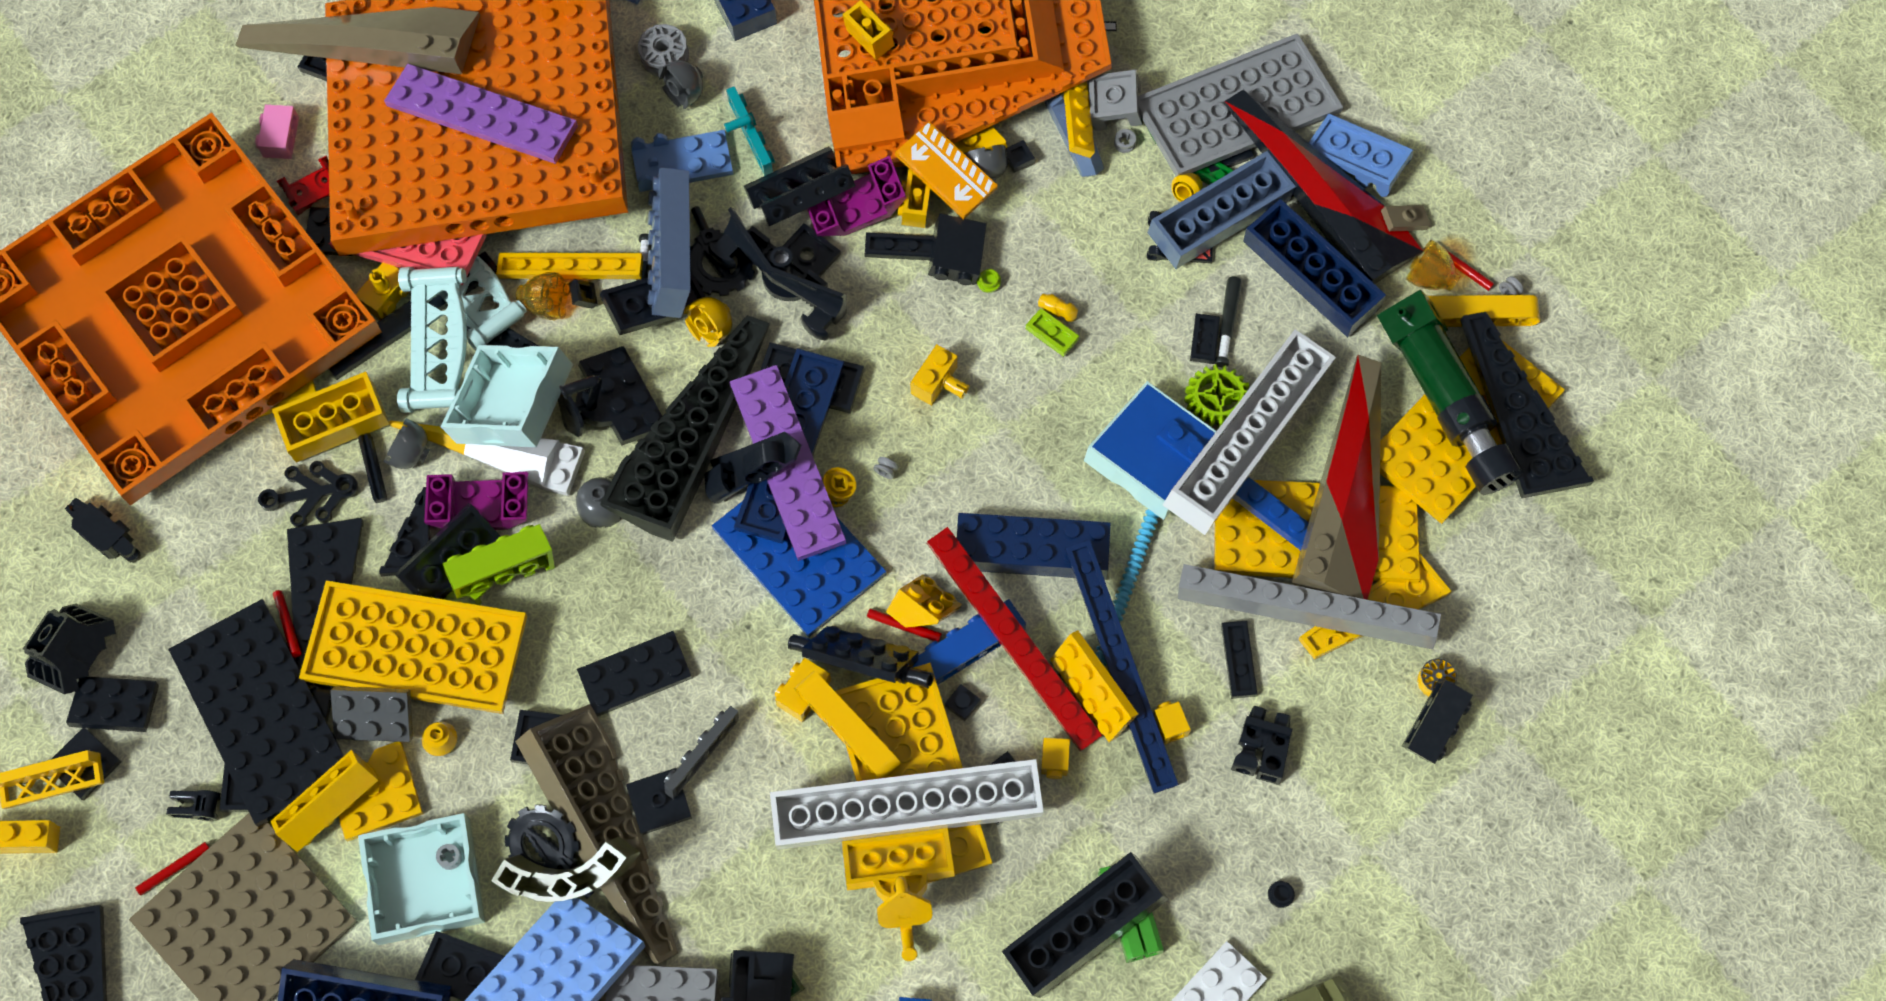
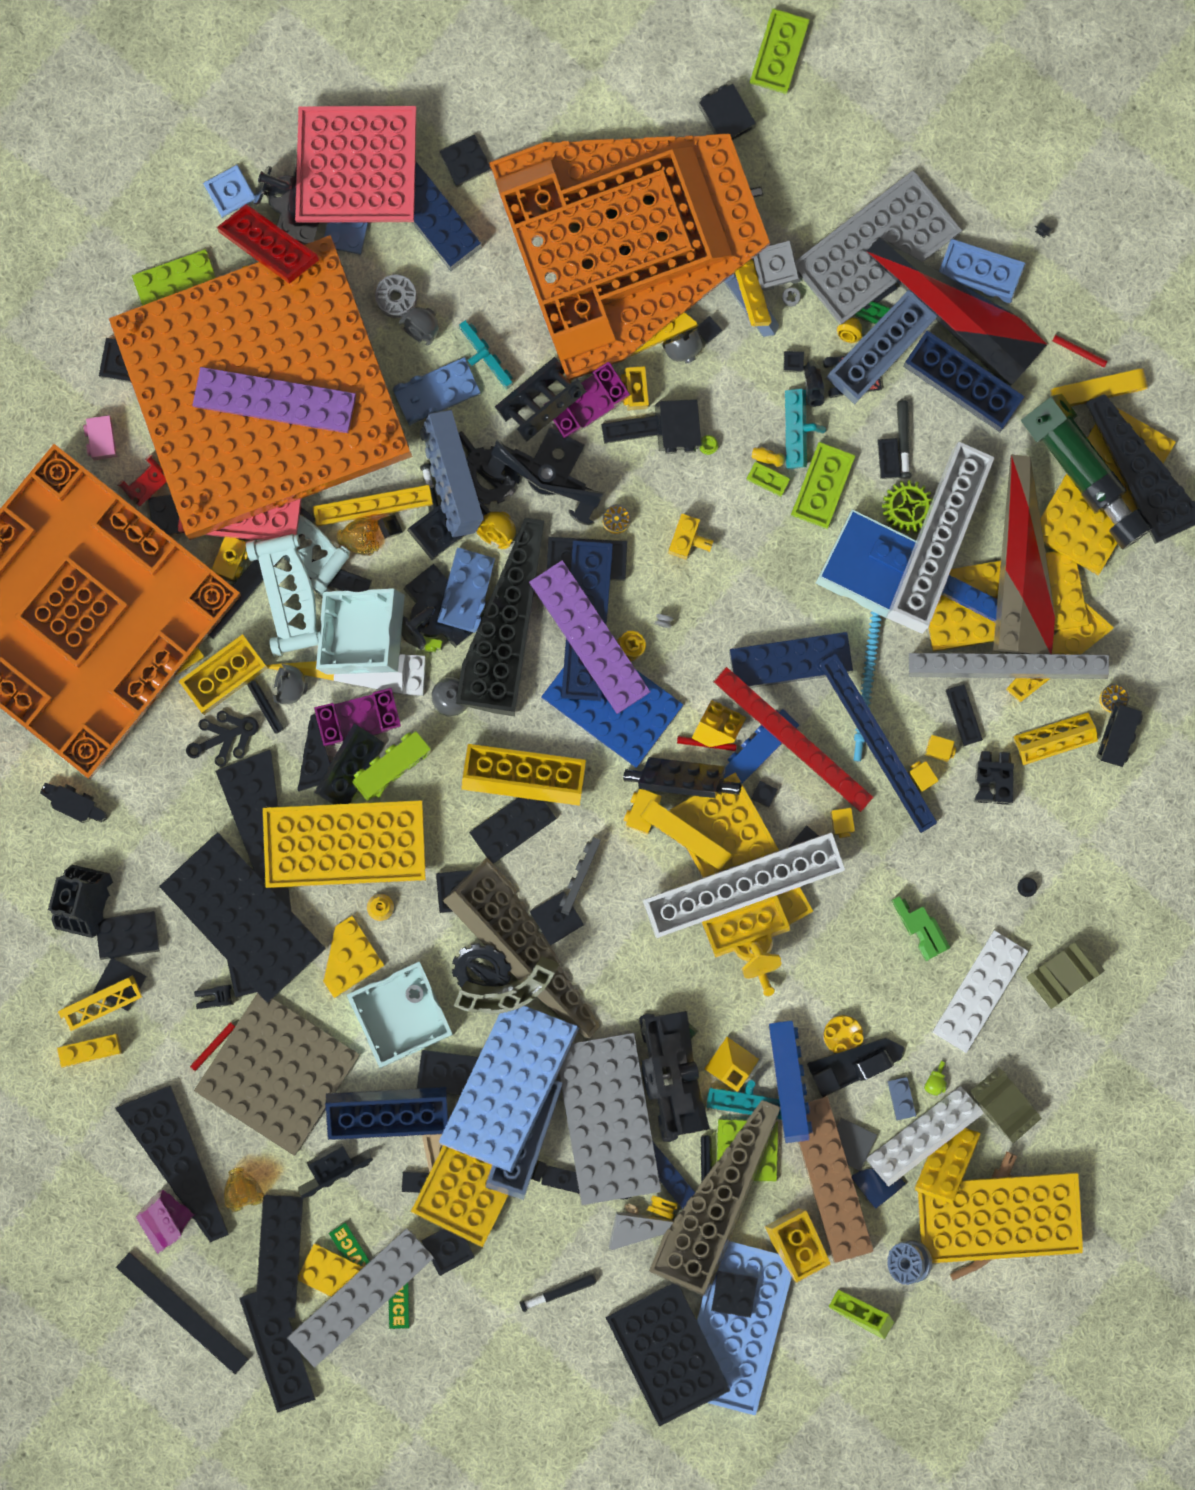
camera: 20 degrees left, 15 degrees up
(286, 623) = (239, 845): red bar -> none
(324, 801) = (313, 974): yellow brick -> none
(372, 714) = (327, 901): dark grey plate -> none
(420, 37) = (186, 342): dark tan wedge -> none
(595, 436) = (433, 645): none -> lime plate
(652, 381) = (466, 590): none -> medium blue hinge
(662, 609) = (523, 774): none -> yellow brick
(749, 465) = (562, 647): black panel -> none
(857, 341) = (616, 519): none -> wheel
(868, 29) = (569, 260): yellow brick -> none
(946, 170) = (656, 363): light orange tile -> none
(1084, 925) = (891, 944): black brick -> none
(1093, 686) = (860, 763): yellow plate -> none
(1099, 283) = (797, 429): none -> teal plate
(1112, 209) = (793, 361): none -> black plate
(1117, 353) = (822, 485): none -> lime plate
(1130, 239) = (813, 384): none -> black rock
(1200, 692) = (940, 748): none -> yellow brick
(1353, 716) = (1058, 741): none -> yellow fence
(1405, 218) = (1028, 320): dark tan plate -> none
(1434, 269) = (1057, 362): clear yellow piece -> none
(1440, 126) = (1042, 229): none -> black plate
(1511, 286) = (1121, 363): light grey bush -> none

